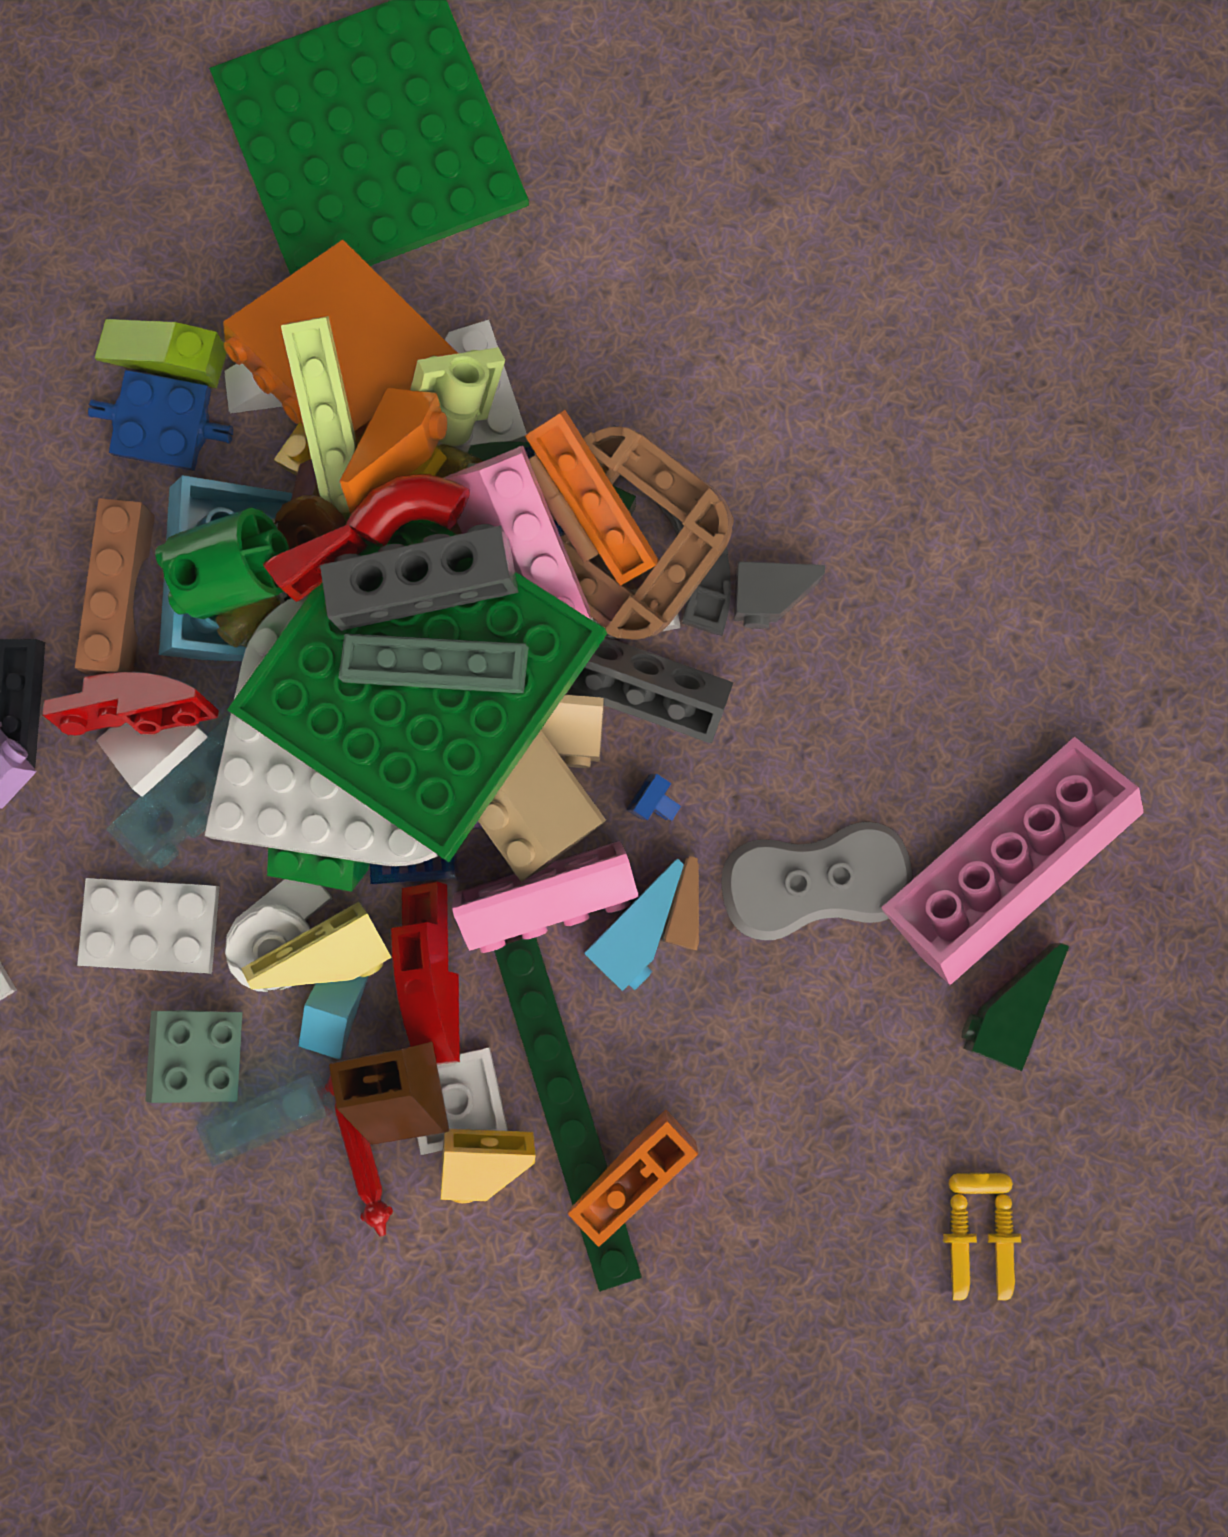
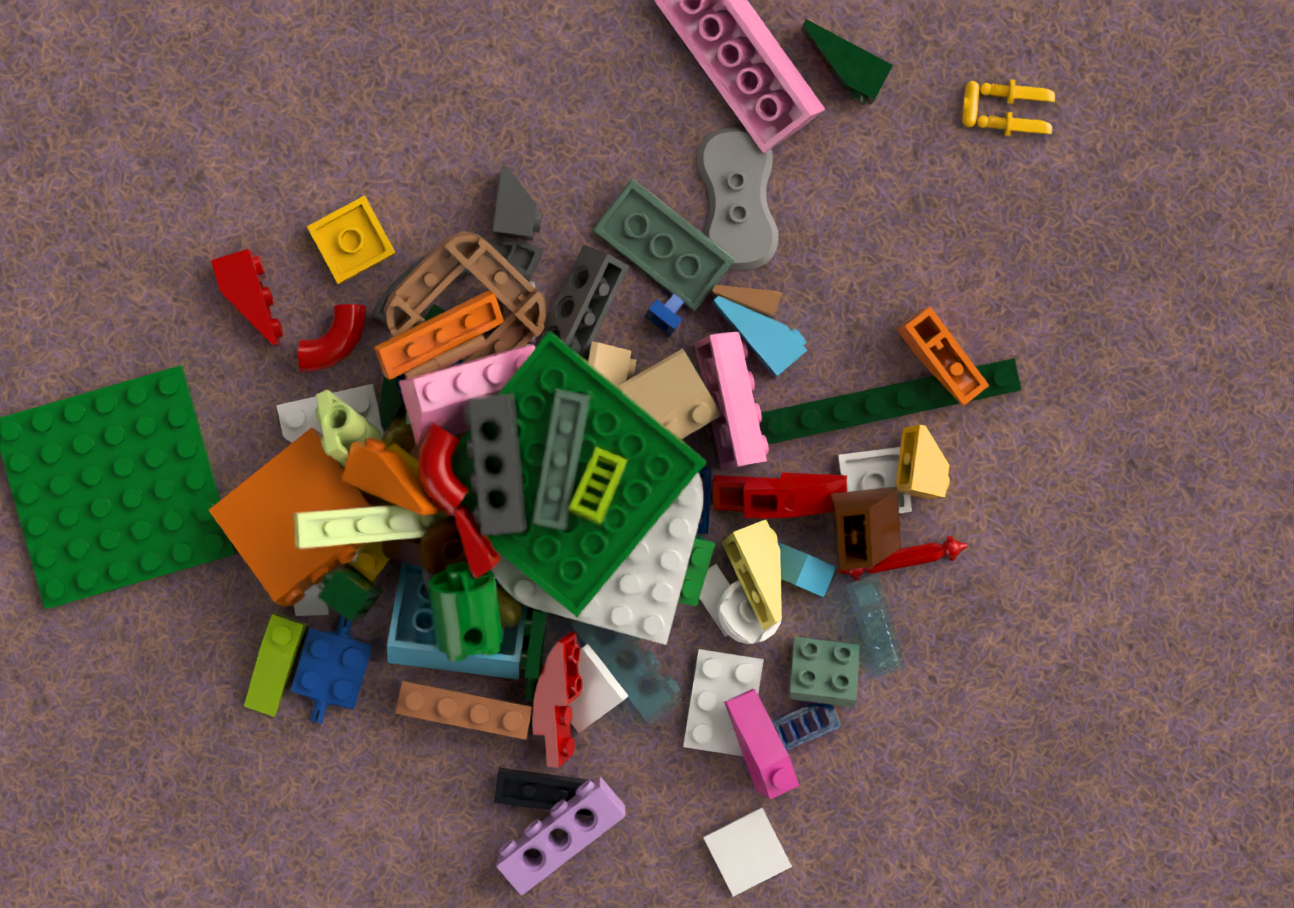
camera: 90 degrees left, 5 degrees up
(87, 980) = (761, 745): none -> dark pink slope
(103, 1030) = (810, 735): none -> clear blue slope
(217, 668) = (532, 656): none -> dark green plate
(241, 414) = (348, 593): none -> dark green brick
(372, 688) = (603, 503): none -> lime slope
(574, 384) = (337, 342): none -> red cylinder
(634, 262) = (241, 284): none -> red slope
(708, 391) = (351, 240): none -> yellow plate
(745, 788) = (663, 244): none -> sand green tile

